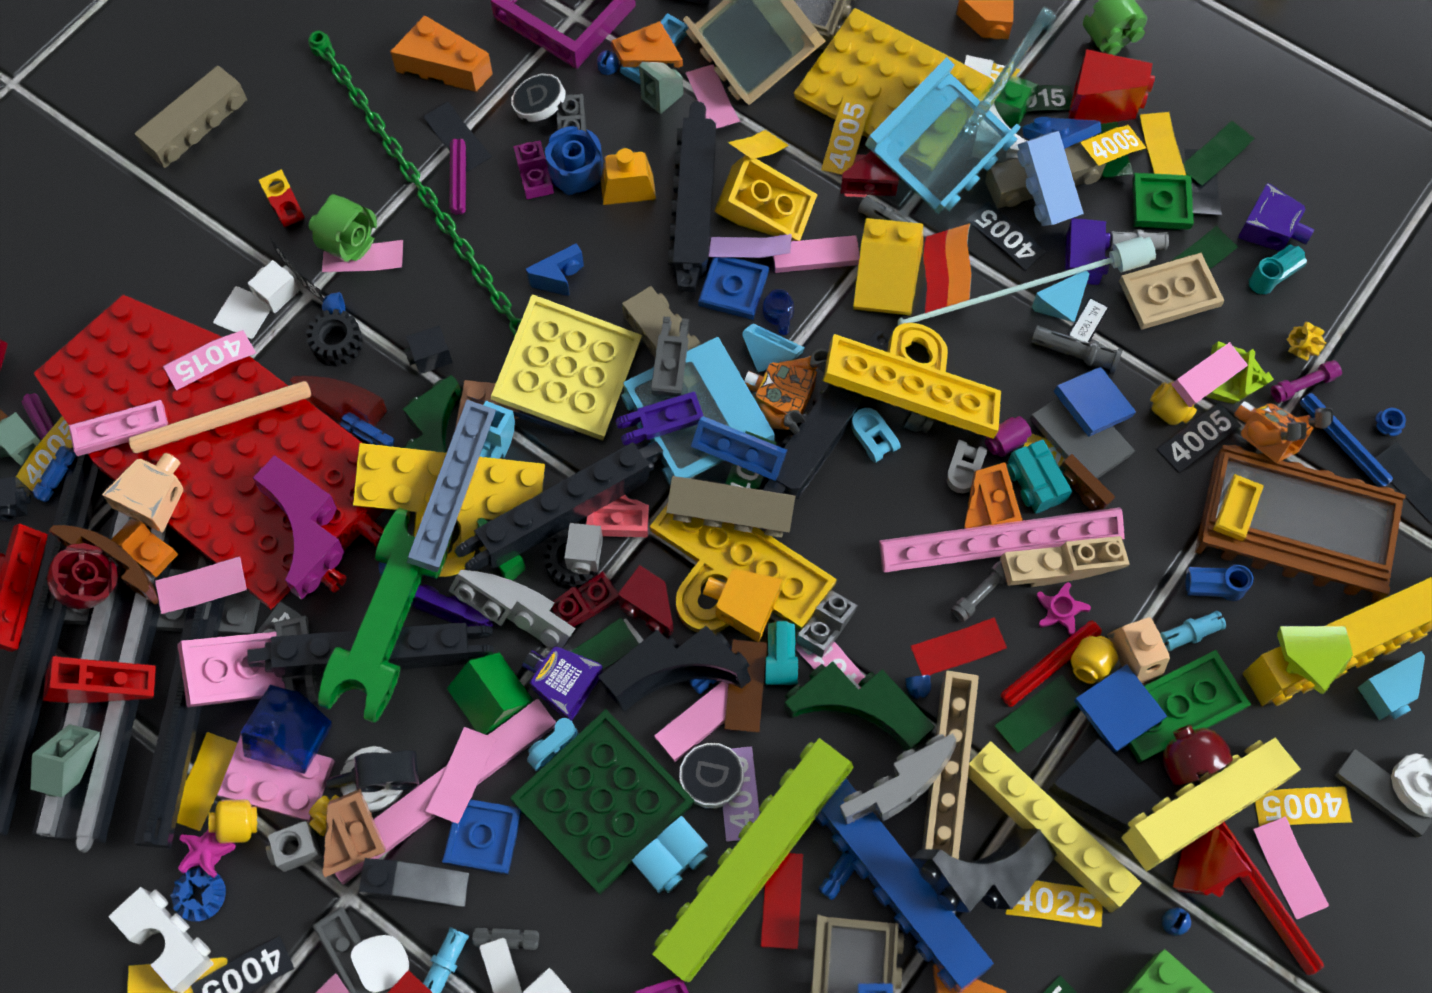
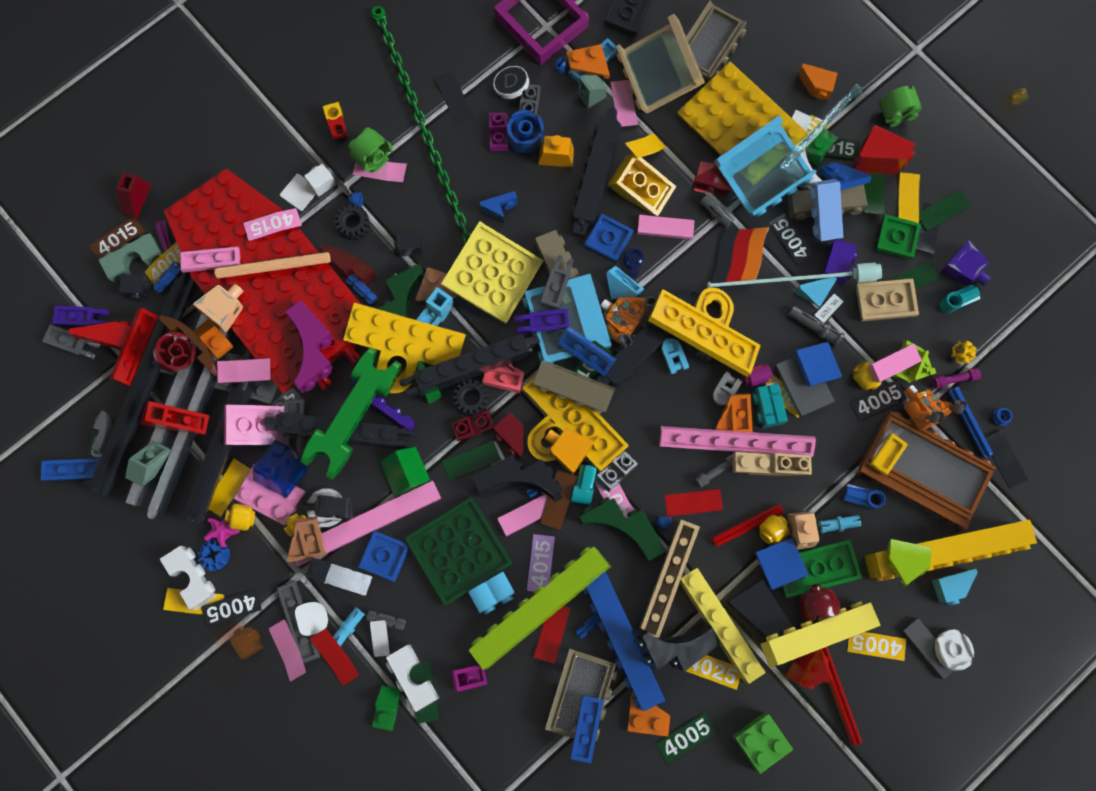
camera: 10 degrees right, 10 degrees up
(191, 116) = (288, 51): dark tan brick -> none
(307, 850) = (280, 543): light grey brick -> none
(442, 55) = (454, 39): orange wedge -> none
(451, 486) = (405, 341): sand blue plate -> none
(457, 196) = (449, 127): magenta axle -> none
(461, 775) = (378, 518): bright pink sticker -> none
(503, 598) = (423, 416): light grey slope -> none
(544, 750) = (430, 514): medium azure plate -> none
(563, 679) = (450, 472): dark purple torso -> none
(583, 548) = (478, 395): light grey brick -> none
(712, 775) = (526, 549): black tile -> none
(750, 246) = (625, 214): lavender sticker -> none
(846, 134) = (704, 149): yellow sticker -> none
(888, 266) = (709, 246): yellow slope -> none
(914, 776) = (646, 580): light grey slope -> none
(1038, 714) = (732, 554): dark green sticker -> none
(1061, 608) = (762, 492): dark pink animal -> none
(1090, 489) = (800, 422): reddish brown plate -> none
(1112, 144) = (876, 192): yellow sticker -> none
(1159, 240) = (886, 263): light grey pin -> none
(1169, 919) = (778, 694): blue hinge -> none
(1290, 868) = (859, 680): bright pink sticker -> none

